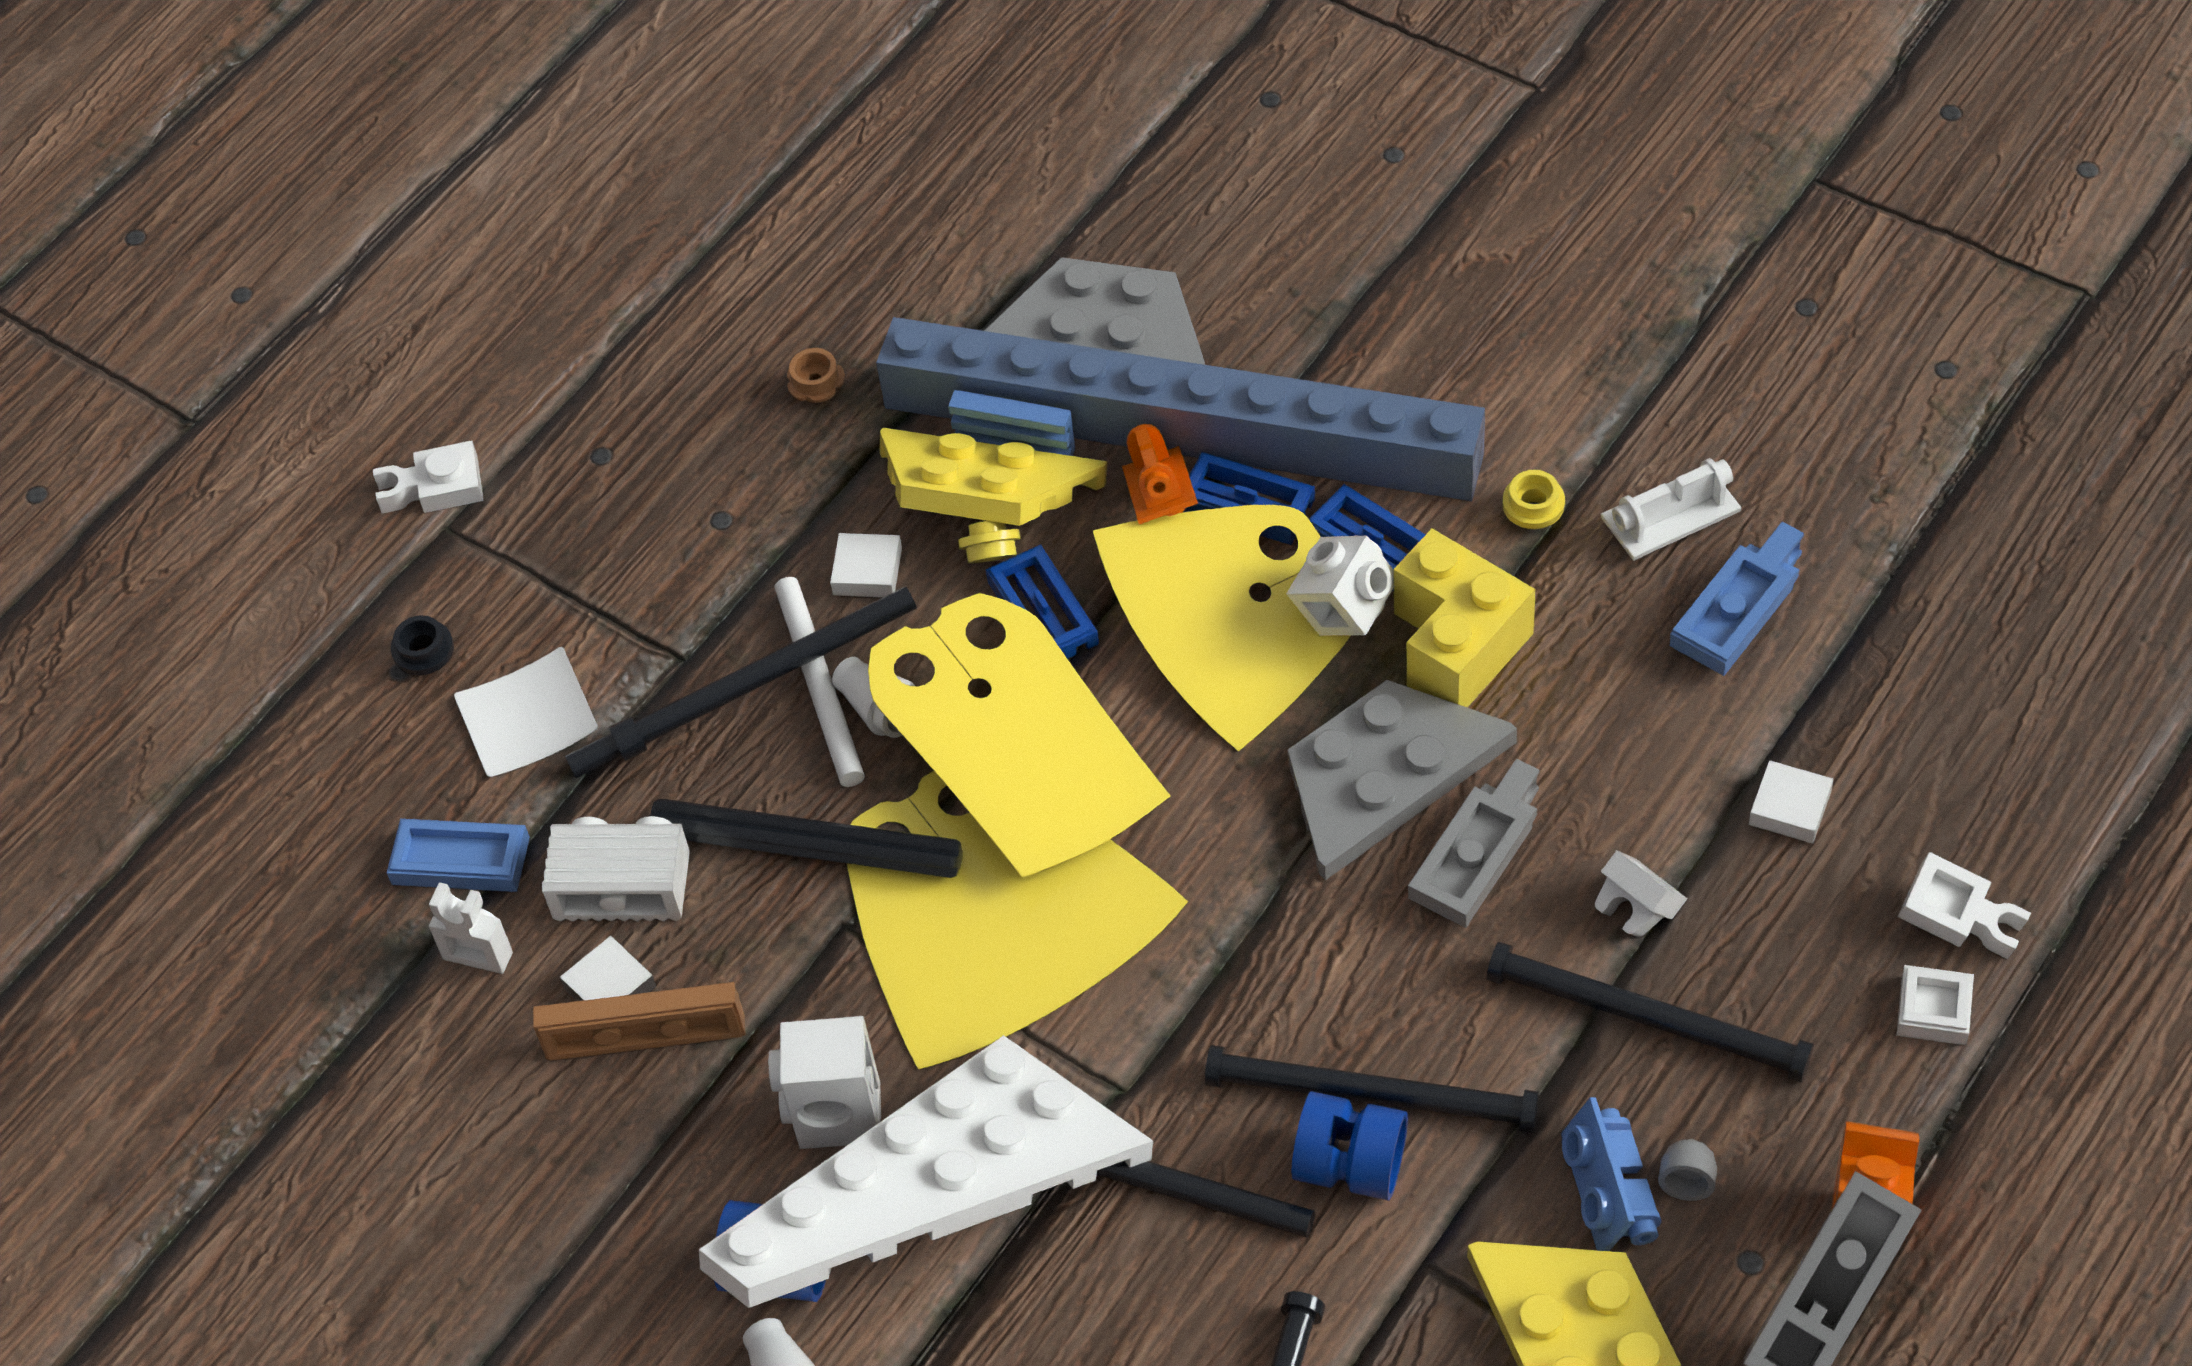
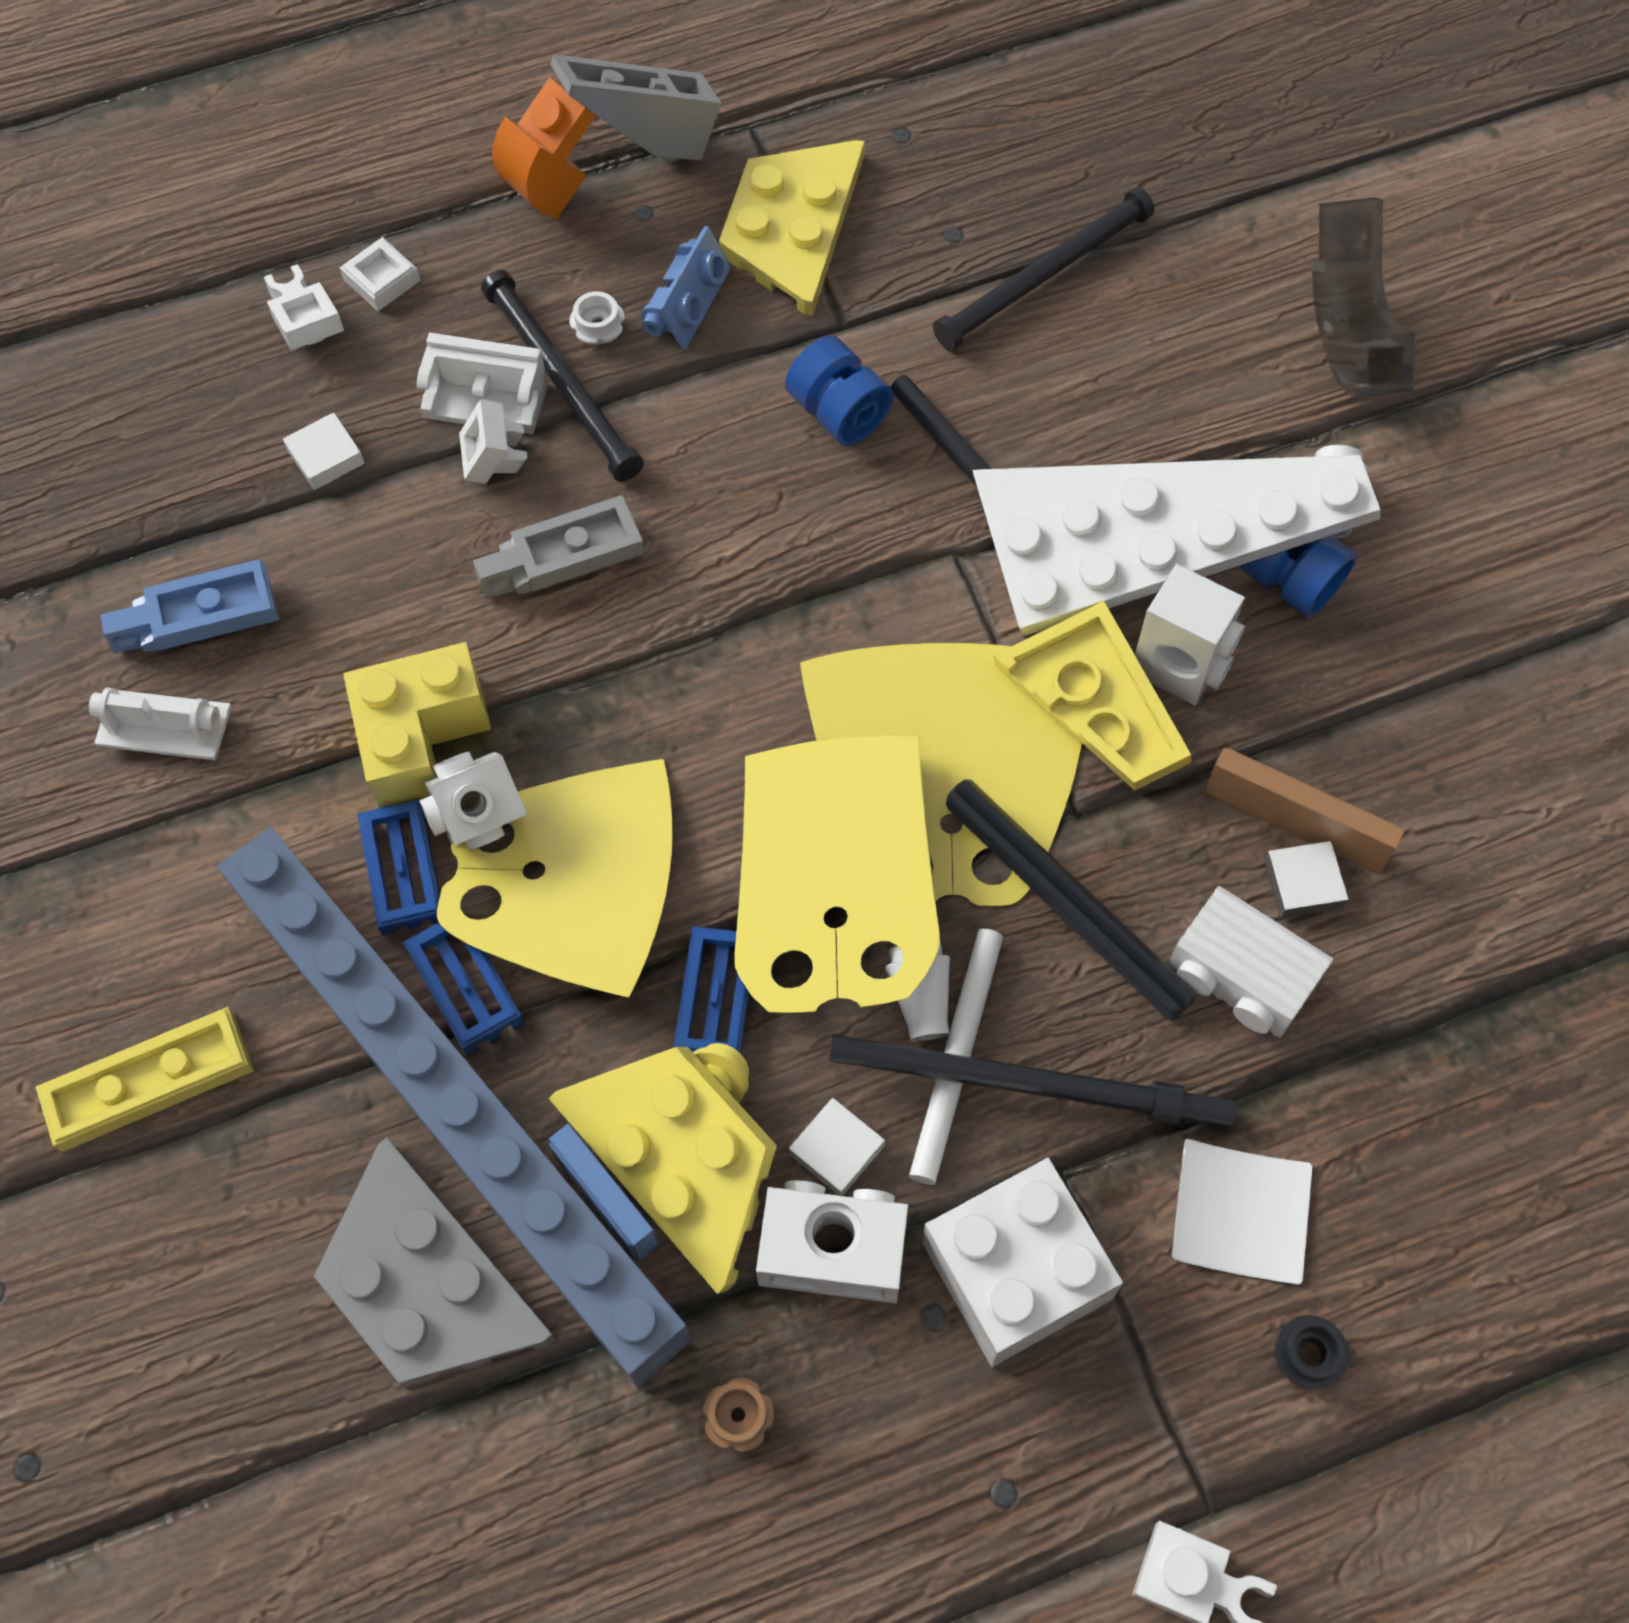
camera: 150 degrees left, 10 degrees up
(458, 855) = (1380, 1092): medium blue tile -> none
(468, 932) = (1414, 975): white plate -> none
(670, 559) = (1020, 1261): none -> white brick
(818, 494) = (862, 1271): none -> white brick
(912, 1027) = (1099, 694): none -> light yellow wing
(1157, 475) = (528, 1027): orange hinge -> none
(1371, 1088) = (878, 514): black bar -> none
(1386, 765) = (571, 664): light grey wing -> none
(1418, 307) = (144, 1079): none -> light yellow tile
(1533, 487) = (243, 792): light yellow plate -> none
(1667, 1072) = (595, 308): none -> white plate
(1688, 1170) = (632, 266): light grey hinge -> none
(1709, 948) = (465, 370): none -> white hinge

